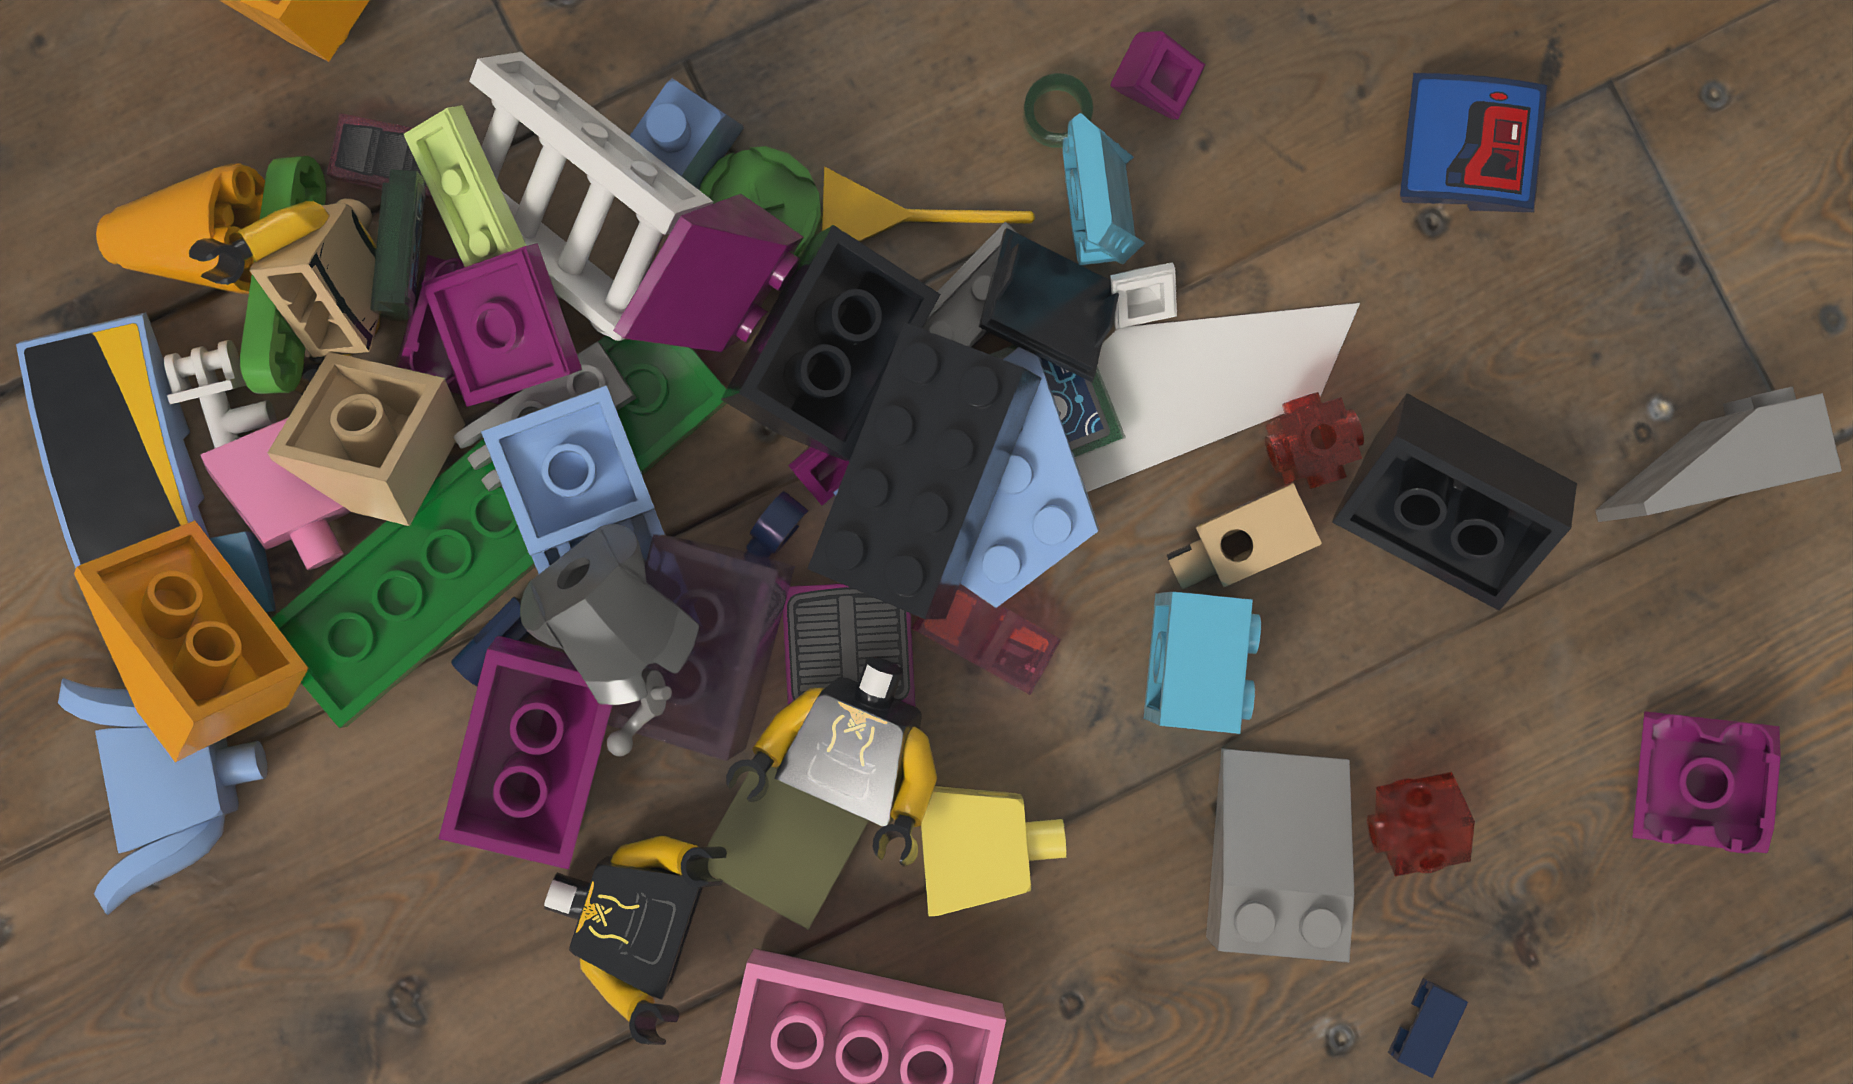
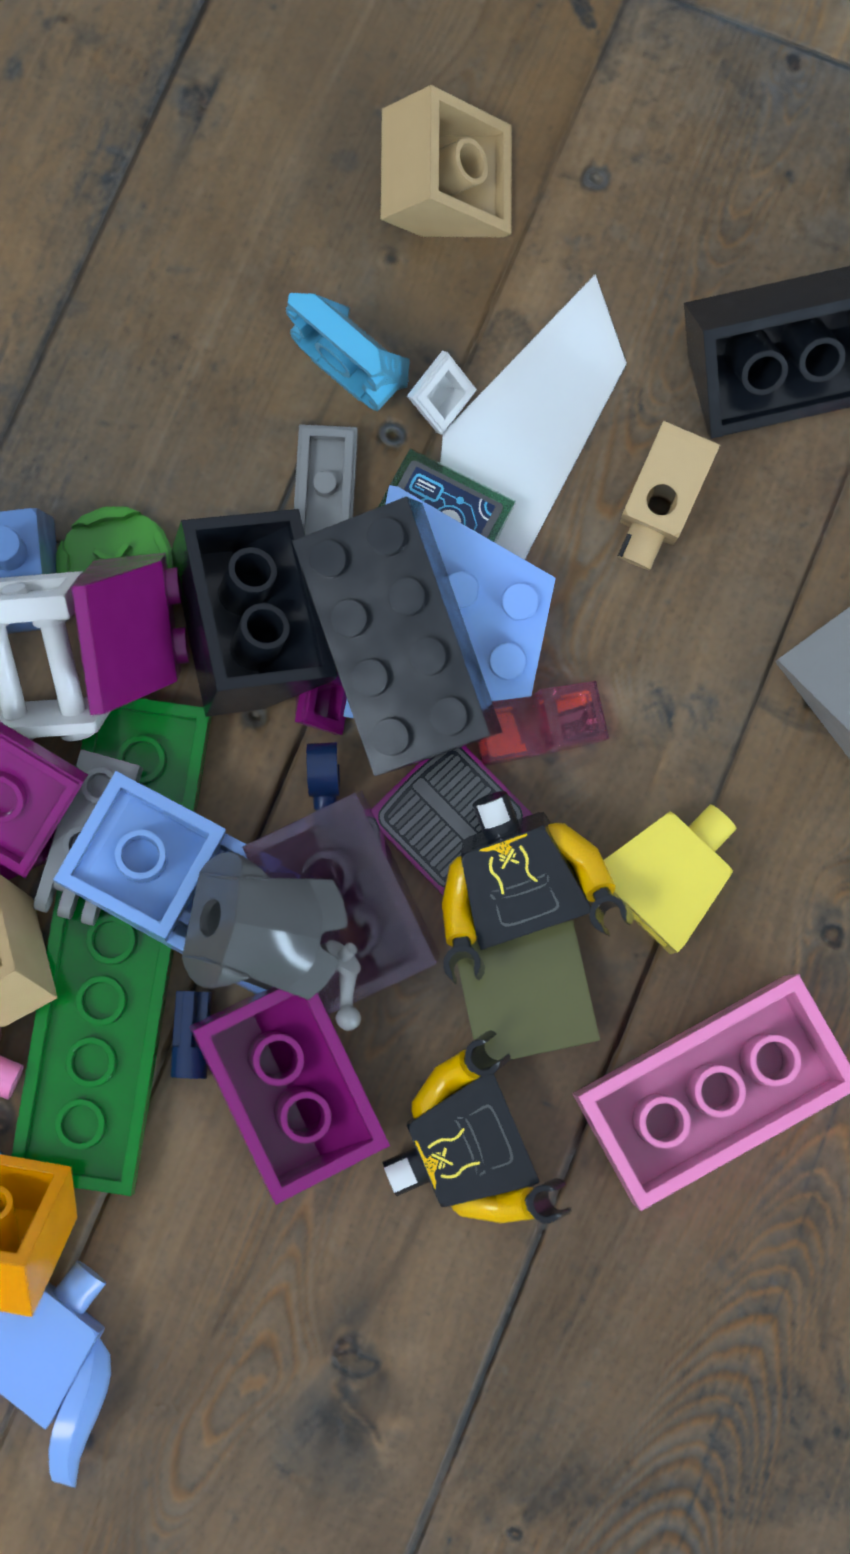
camera: 35 degrees left, 5 degrees down
(865, 213) = (202, 497): yellow piece -> none
(1048, 305) = (382, 451): black piece -> none
(1051, 82) = (252, 298): clear green piece -> none
(1158, 73) = (315, 235): magenta slope -> none
(1201, 662) = (707, 604): medium azure brick -> none
(1291, 445) = (649, 389): clear red brick -> none
(1312, 108) = (445, 167): none -> tan slope
(1473, 142) = (576, 99): slope -> none

